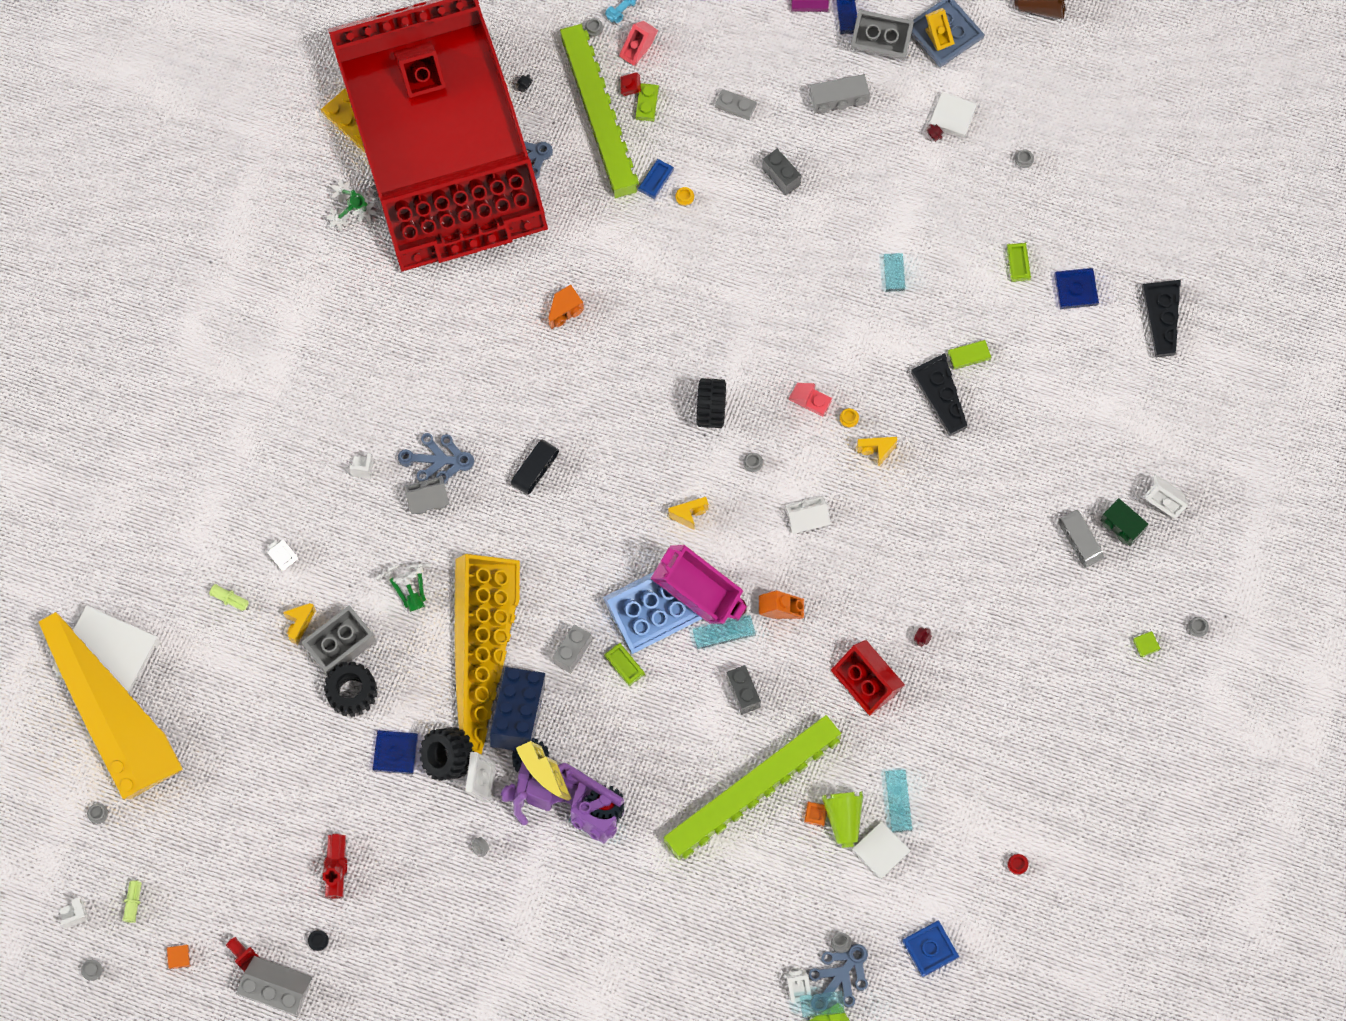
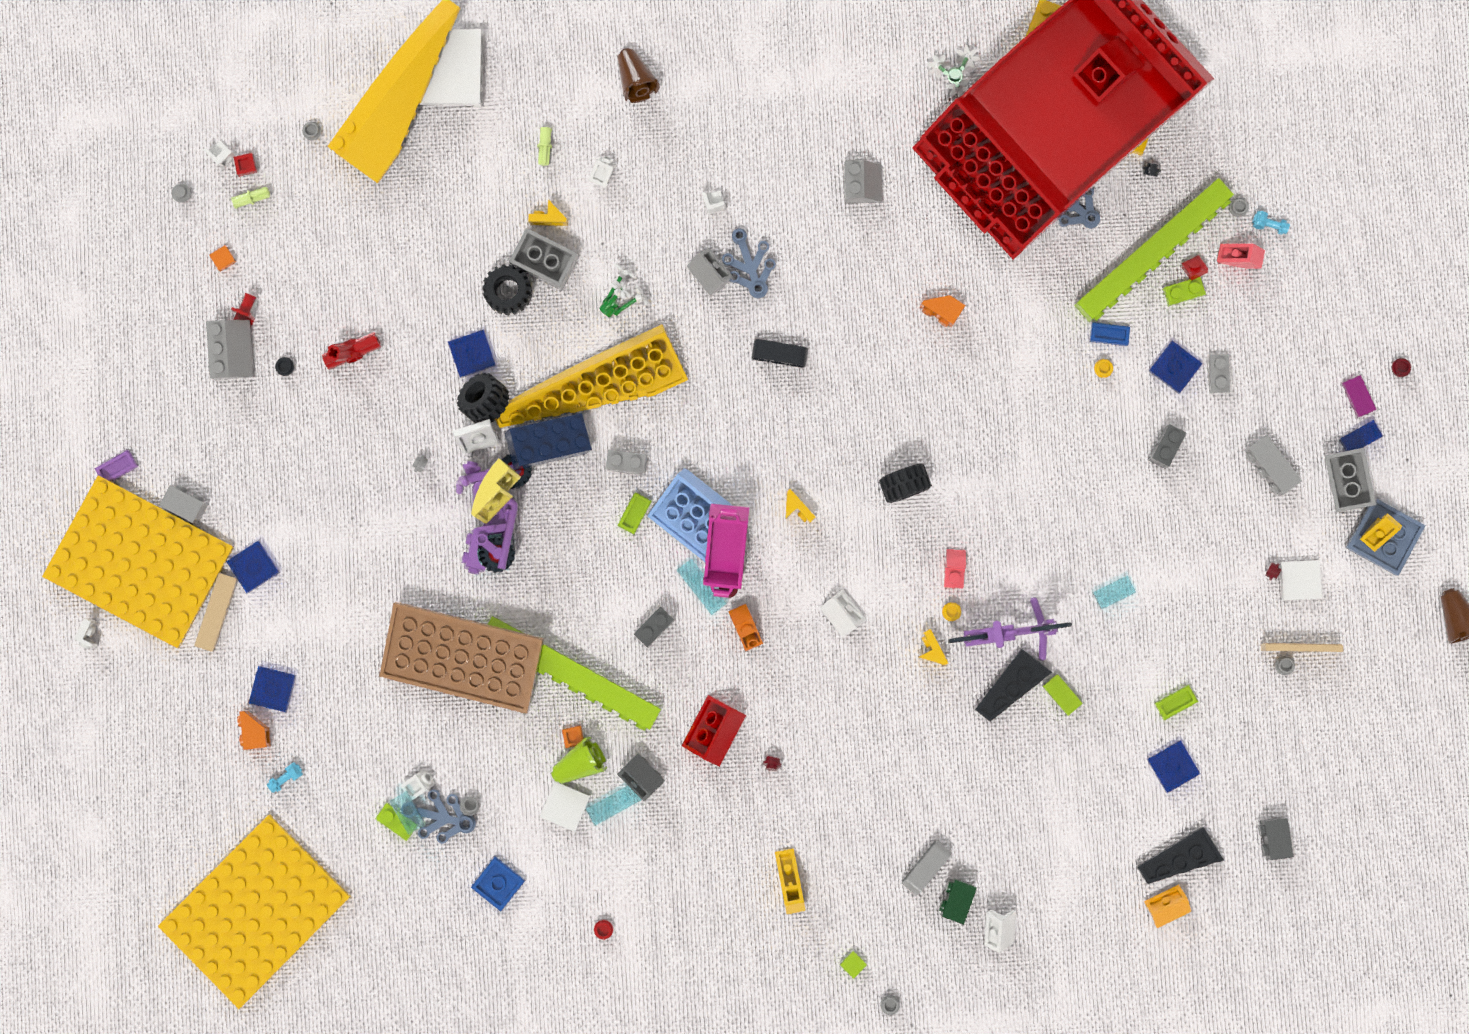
camera: 70 degrees right, 15 degrees up
(97, 892) = (245, 164): none -> red plate
(207, 484) = (636, 77): none -> reddish brown cone
(410, 329) = (862, 182): none -> light grey slope
(690, 884) = (461, 657): none -> medium nougat plate
(712, 137) = (1175, 367): none -> clear blue tile
(753, 462) = (870, 544): light grey plate -> none
(884, 762) = (641, 777): none -> dark grey brick
(892, 366) = (999, 633): none -> medium lavender piece
(1014, 137) = (1301, 647): none -> tan tile
(1044, 667) = (790, 881): none -> yellow slope
(1178, 228) = (1276, 838): none -> dark grey brick
(1203, 344) = (1168, 906): none -> light orange panel

